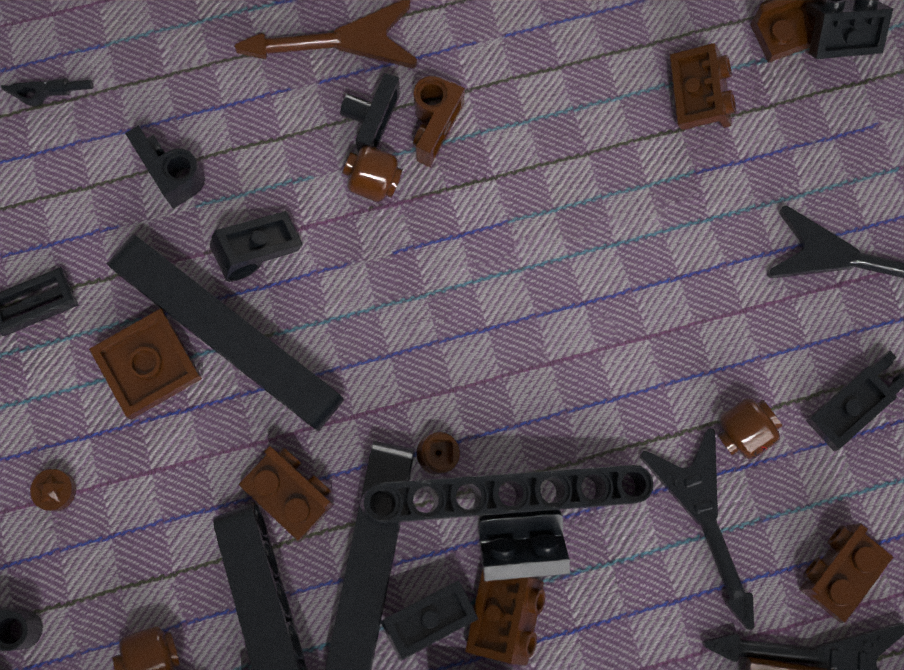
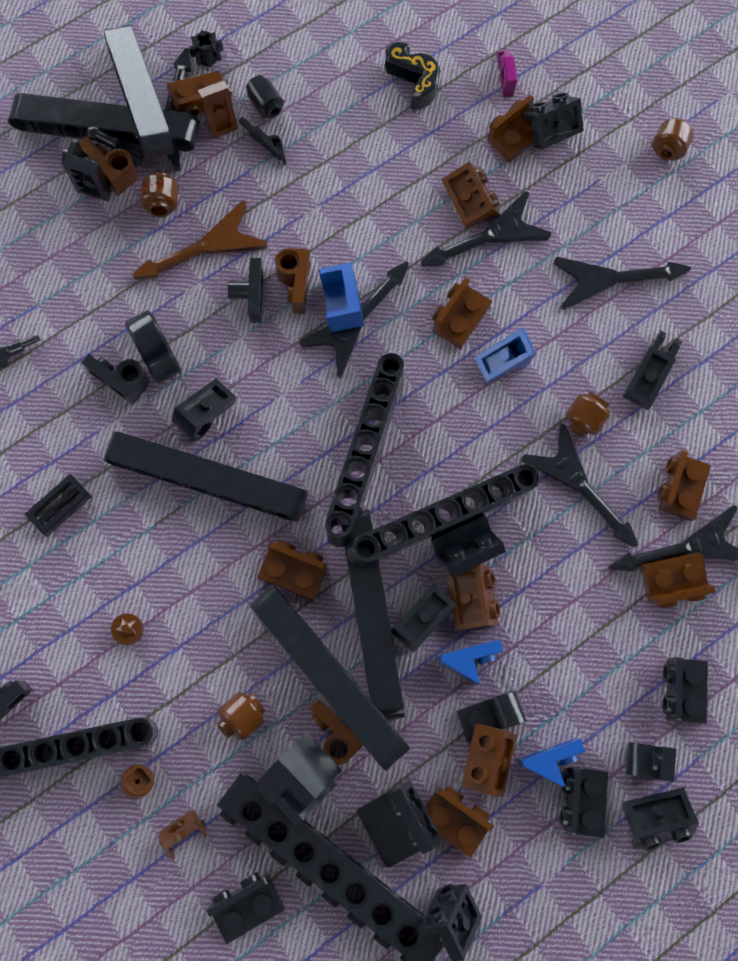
camera: 25 degrees left, 0 degrees up
(145, 364) = (158, 518): reddish brown plate -> none
(221, 143) = (152, 346): none -> black animal
(372, 173) = (267, 331): reddish brown head -> none
(432, 386) = (361, 460): none -> black beam
(438, 453) = (386, 506): reddish brown tile -> none
(473, 208) = (345, 340): none -> black piece
(483, 163) = (341, 297): none -> blue panel
(630, 237) = (461, 314): none -> reddish brown bracket
(668, 312) = (508, 354): none -> blue slope
(732, 146) = (505, 228): none -> black piece

